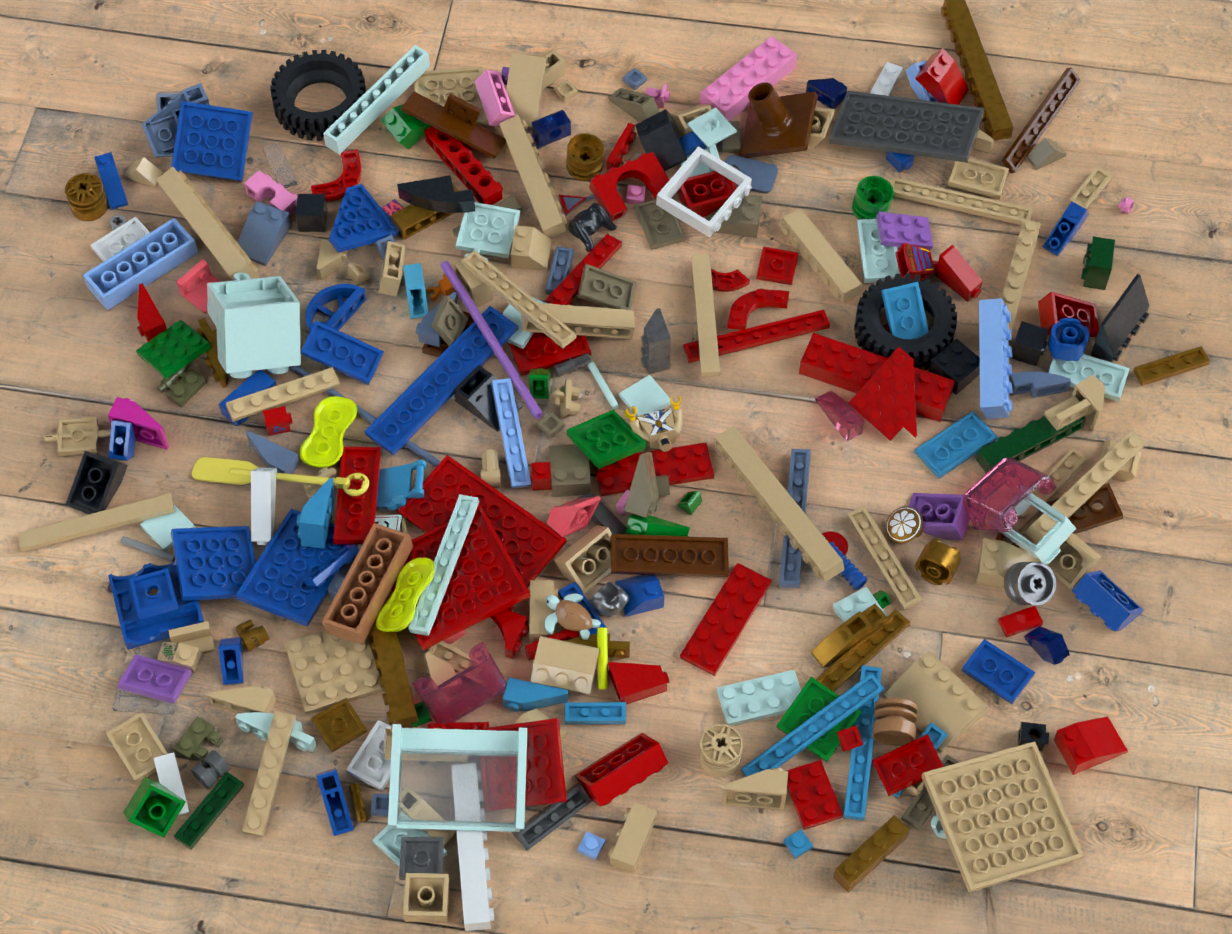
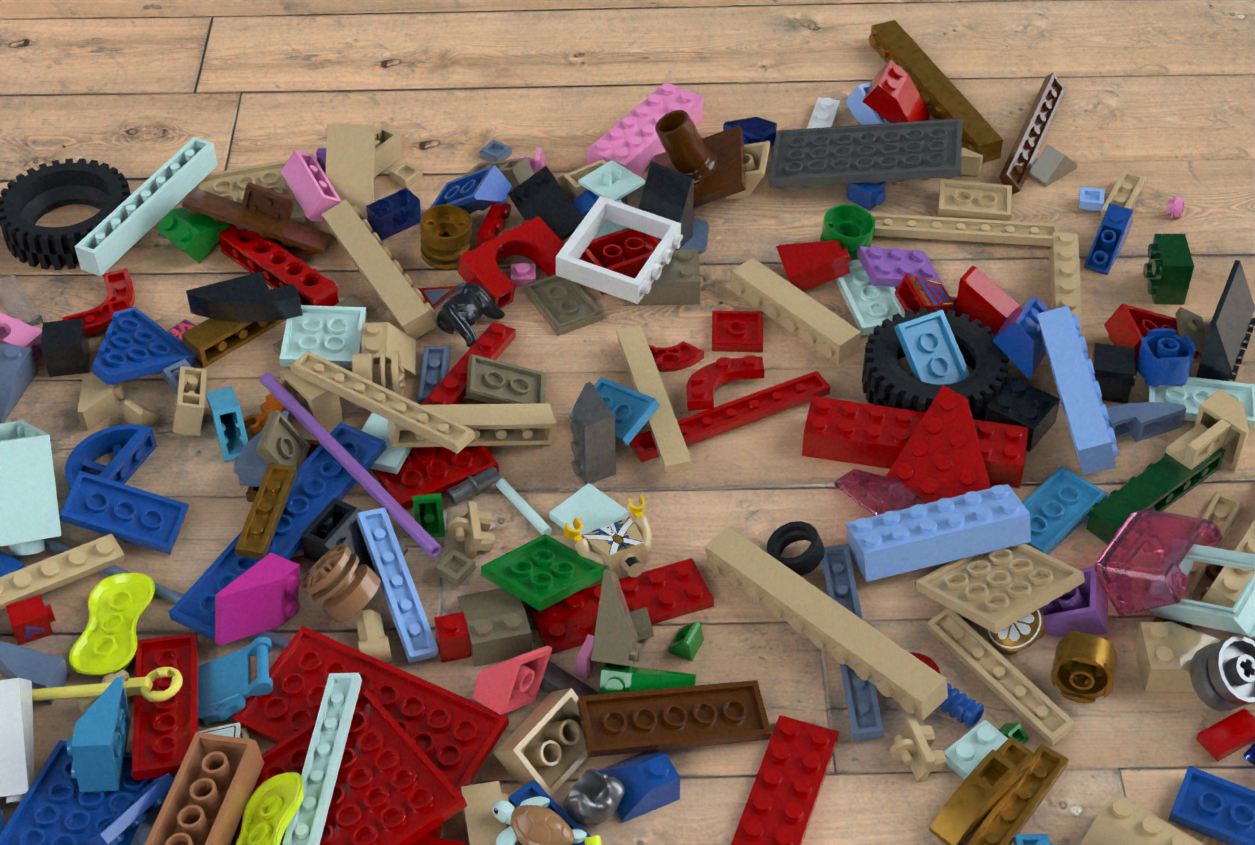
camera: 10 degrees left, 15 degrees down
(422, 432) = (257, 600): none -> dark pink slope
(433, 368) = (266, 511): none -> pearl gold plate
(475, 429) = (341, 583): none -> medium nougat wheel
(522, 273) = (384, 374): none -> tan wheel
(608, 122) = (475, 190): none -> blue slope
(680, 322) = (629, 407): none -> dark azure plate
(747, 155) = (669, 196): none -> black slope
(769, 437) = (795, 532): none -> black tyre
(814, 599) = (913, 748): none -> tan hips
(842, 219) = (814, 263): none -> red slope
(871, 451) = (938, 532): none -> light blue brick
(901, 494) = (1000, 585): none -> tan plate
(966, 309) = (1022, 338): none -> blue slope
(1065, 188) = (1091, 199): none -> light blue plate
(1099, 310) = (1192, 326): none -> dark tan plate

